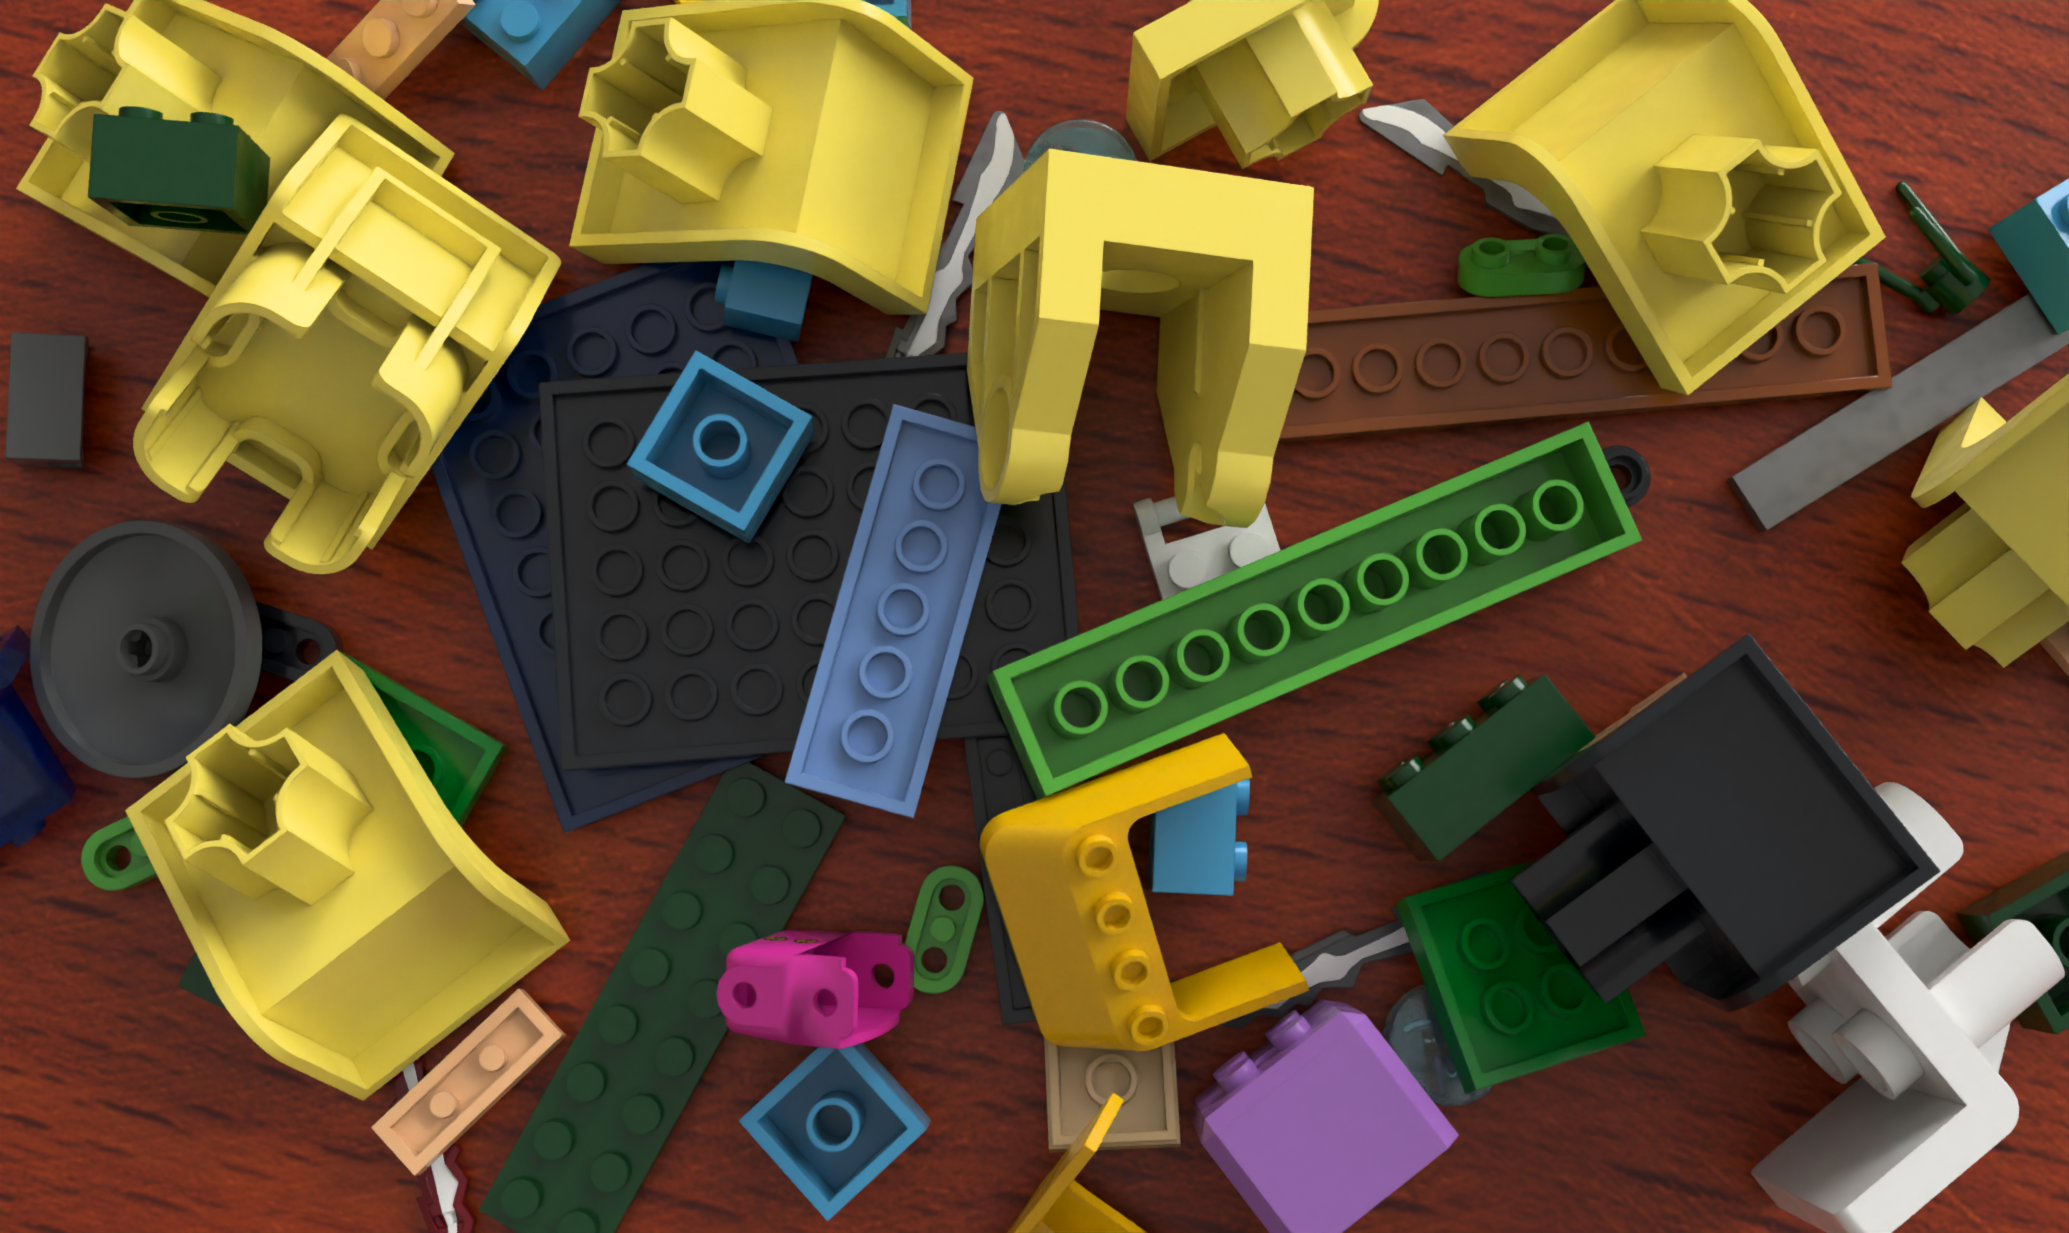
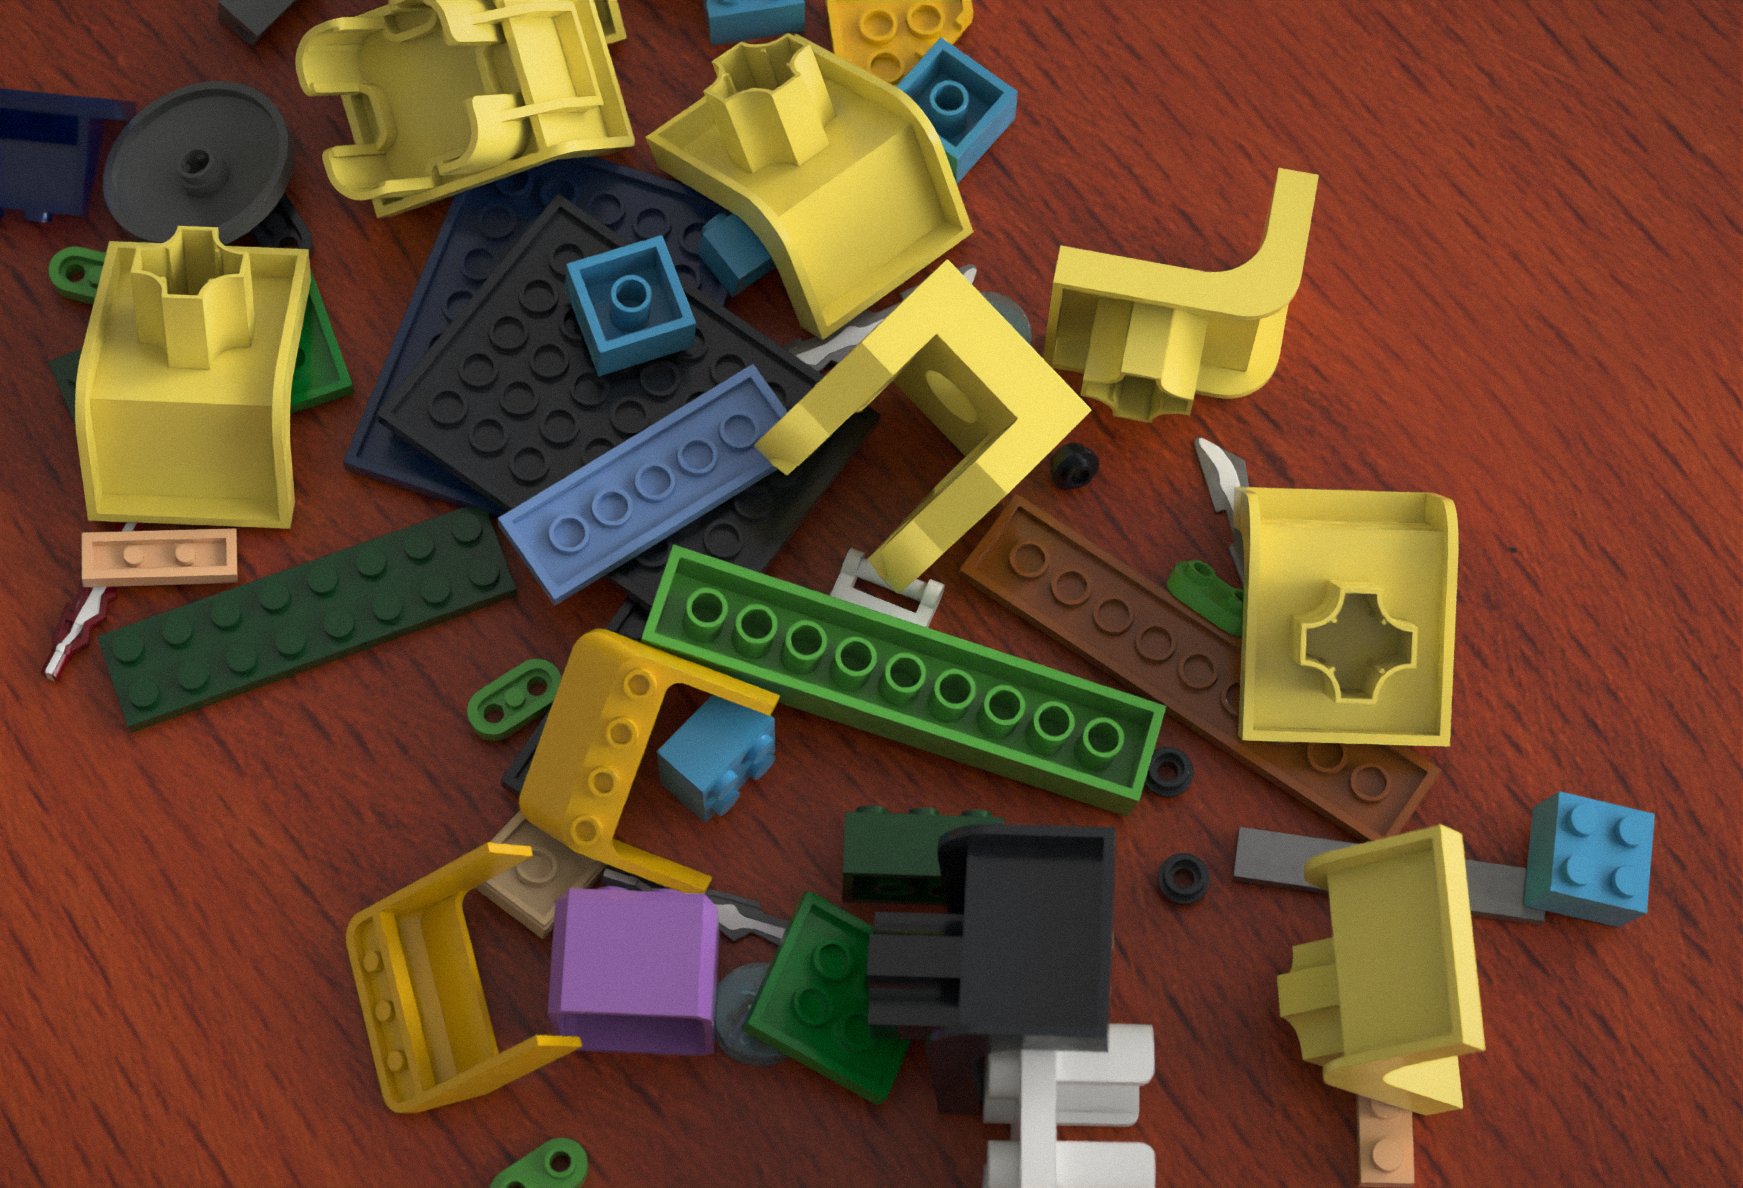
camera: 30 degrees right, 15 degrees down
(816, 987) = (412, 654): dark pink piece -> none
(836, 1124) = (352, 750): dark azure brick -> none
(1737, 563) = (1188, 865): none -> black plate
(1949, 278) = (1485, 817): dark green plant -> none

